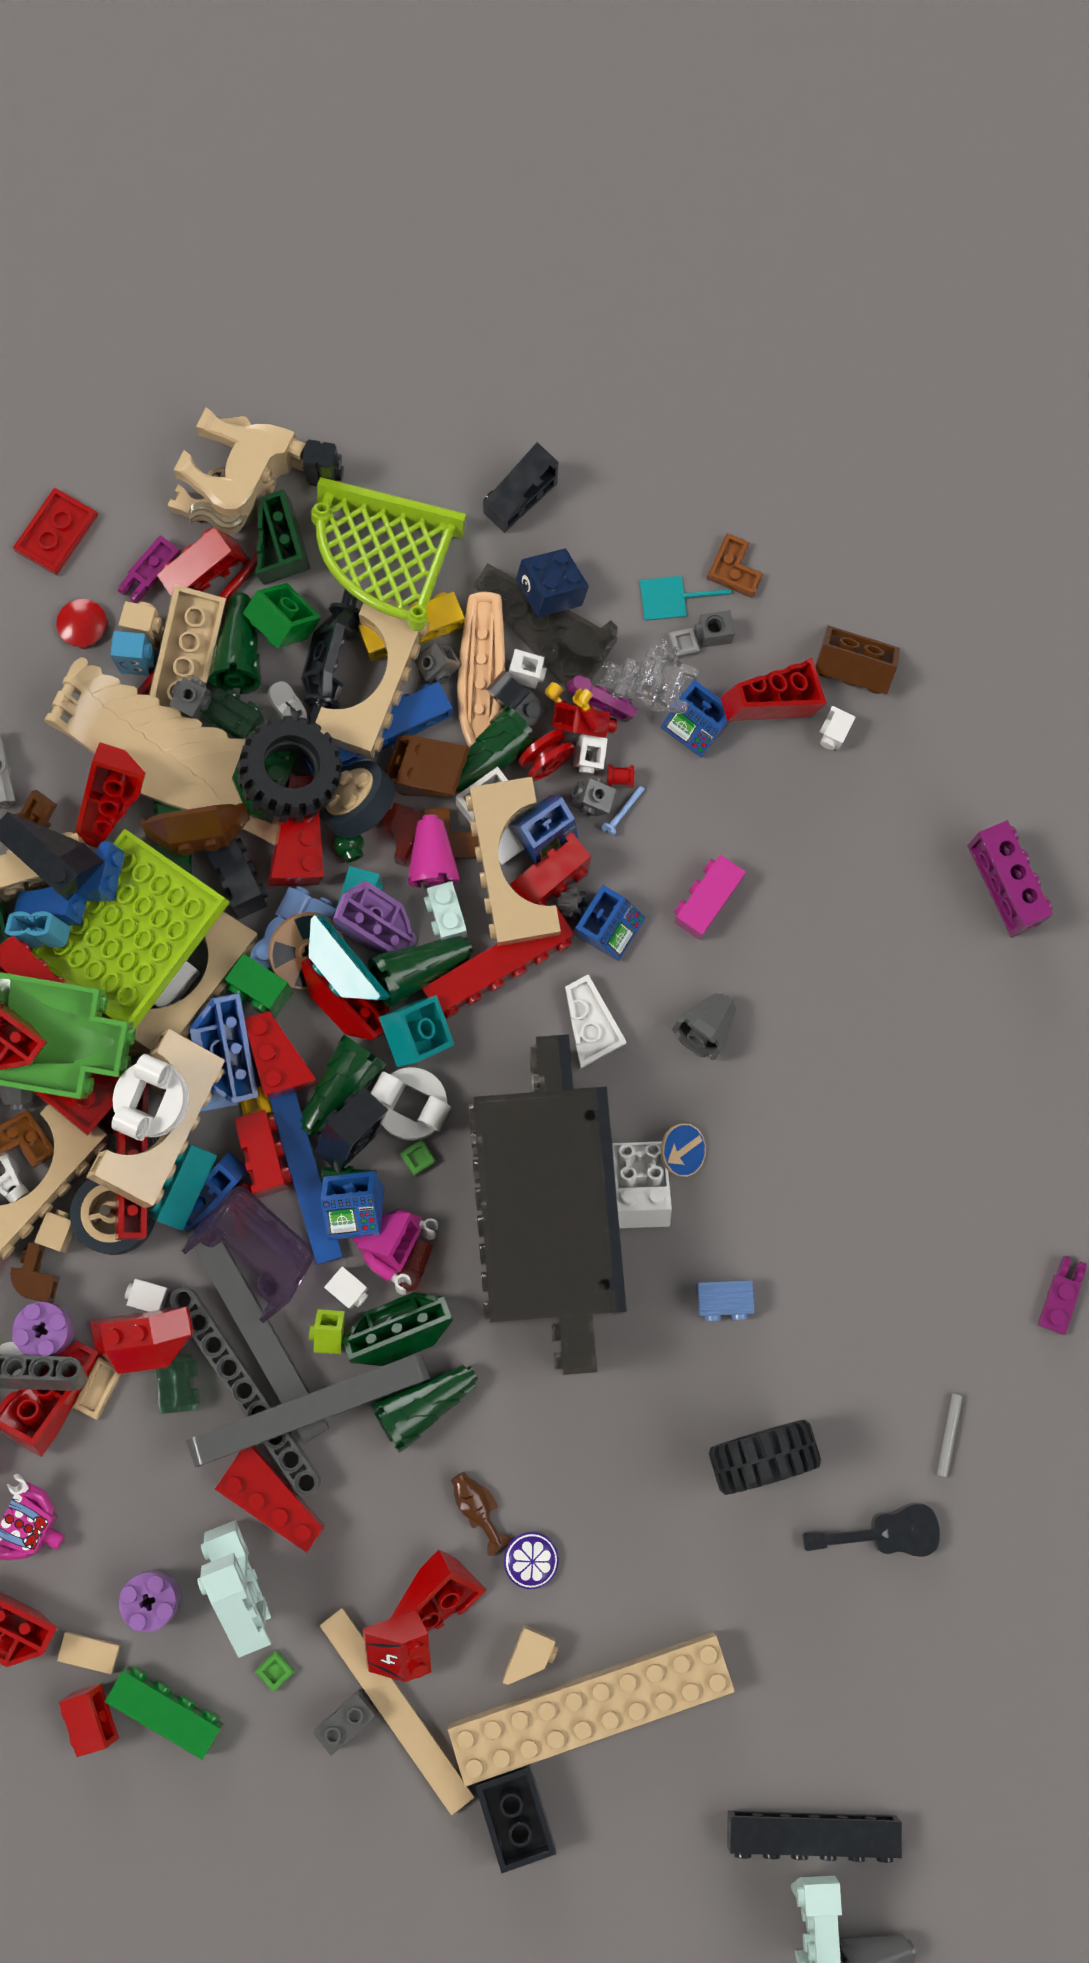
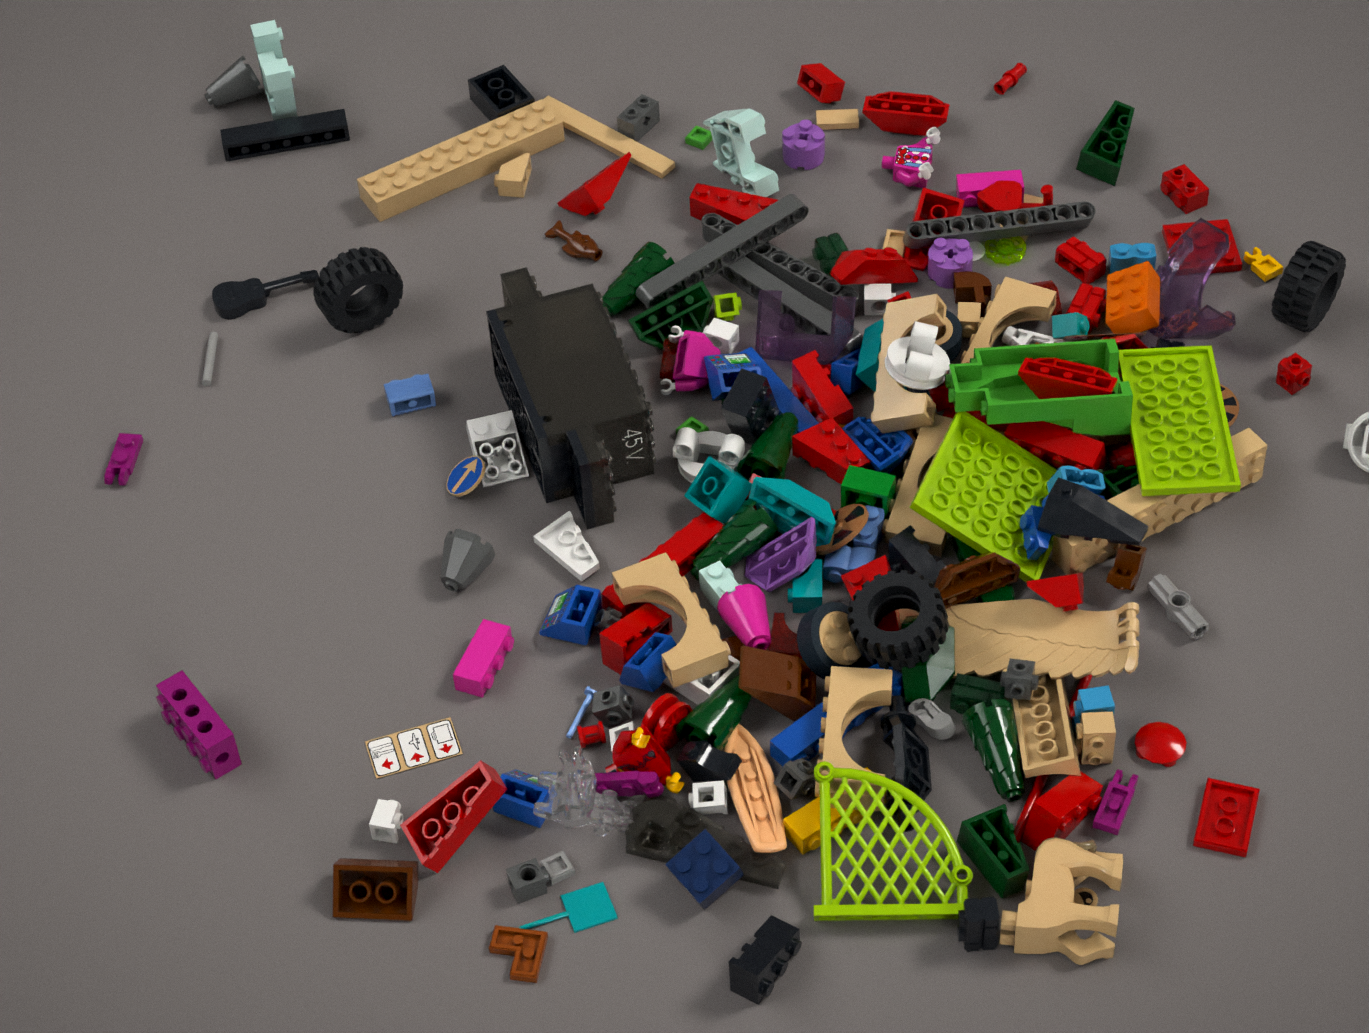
camera: 175 degrees right, 30 degrees down
(164, 1711) = (770, 99): green brick -> none
(281, 615) = (963, 775): green brick -> none
(398, 1647) = (608, 150): red slope -> none
(531, 1560) = (527, 224): dish -> none
(795, 818) = (413, 747): none -> sticker

